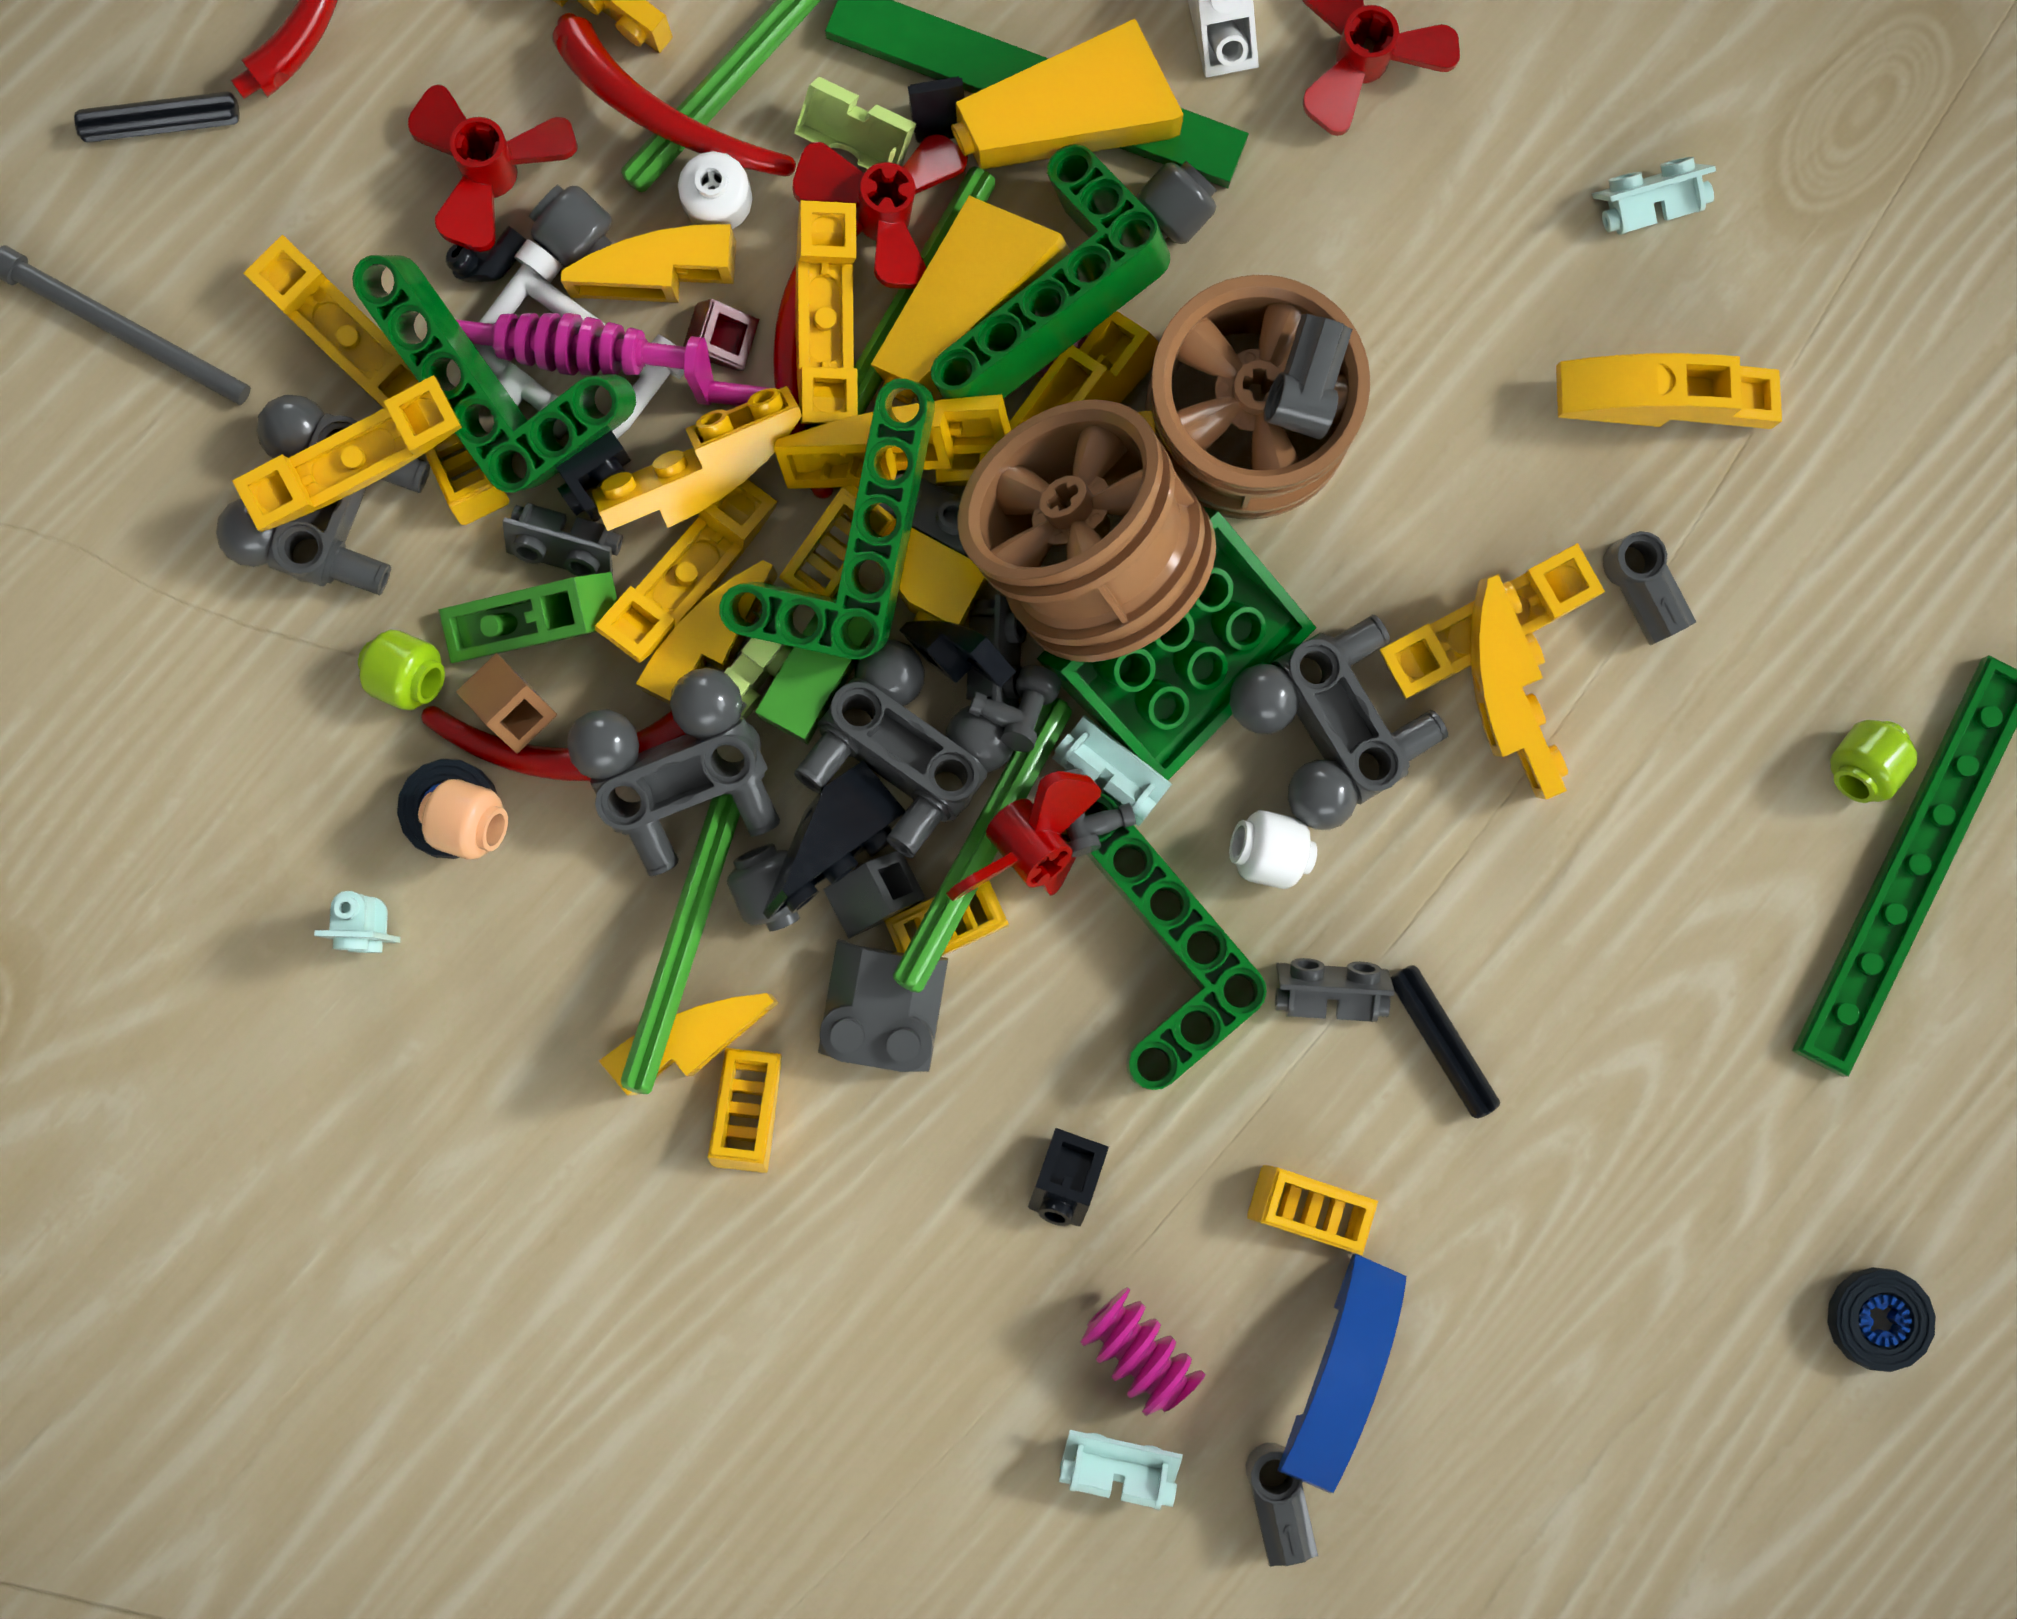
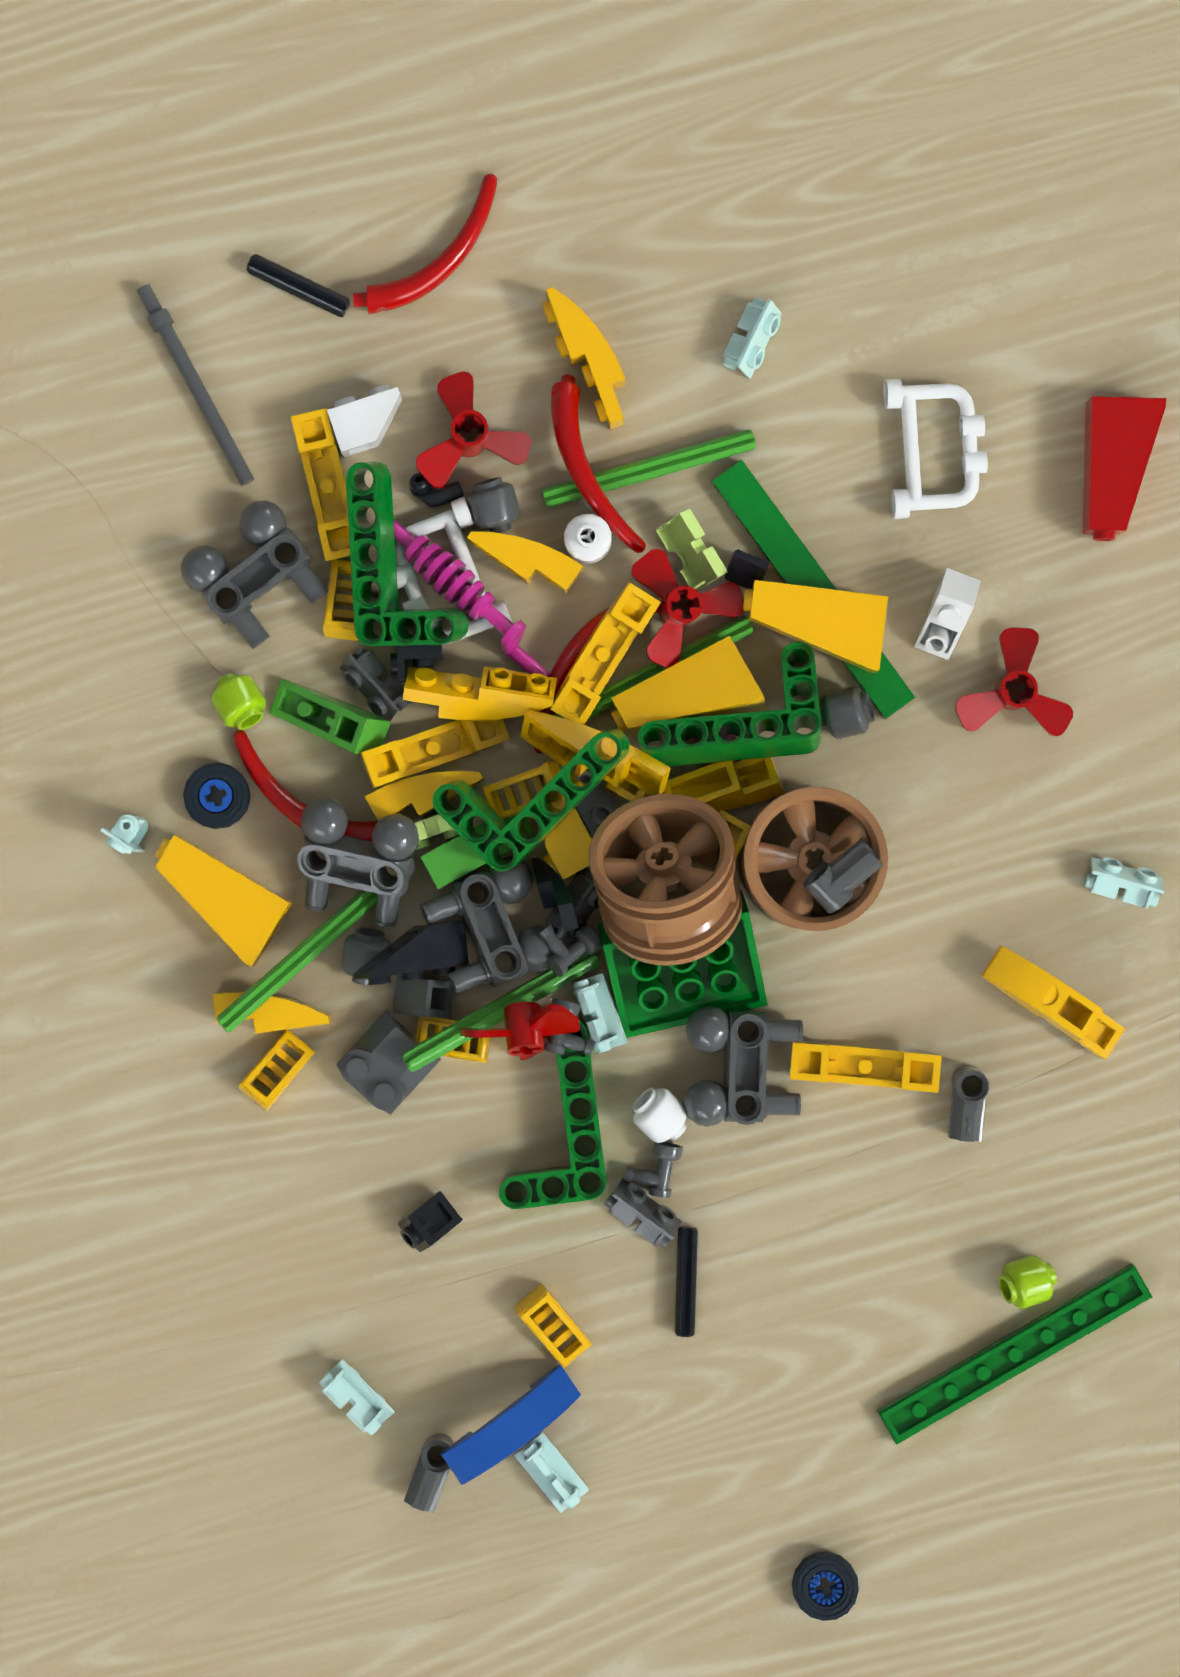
camera: 30 degrees right, 5 degrees up
(341, 222) = (363, 422): none -> white slope
(350, 458) = (284, 567): yellow slope -> none
(463, 819) = (221, 812): light nougat head -> none
(506, 703) = (285, 759): medium nougat brick -> none
(549, 929) = (227, 899): none -> yellow slope
(726, 332) = (541, 620): dark red slope -> none
(1141, 1355) = (407, 1343): dark pink piece -> none
(1326, 932) = (658, 1180): none -> dark grey piece
(1436, 1402) = (552, 1472): none -> light aqua hinge
(1501, 666) = (852, 1100): yellow slope -> none

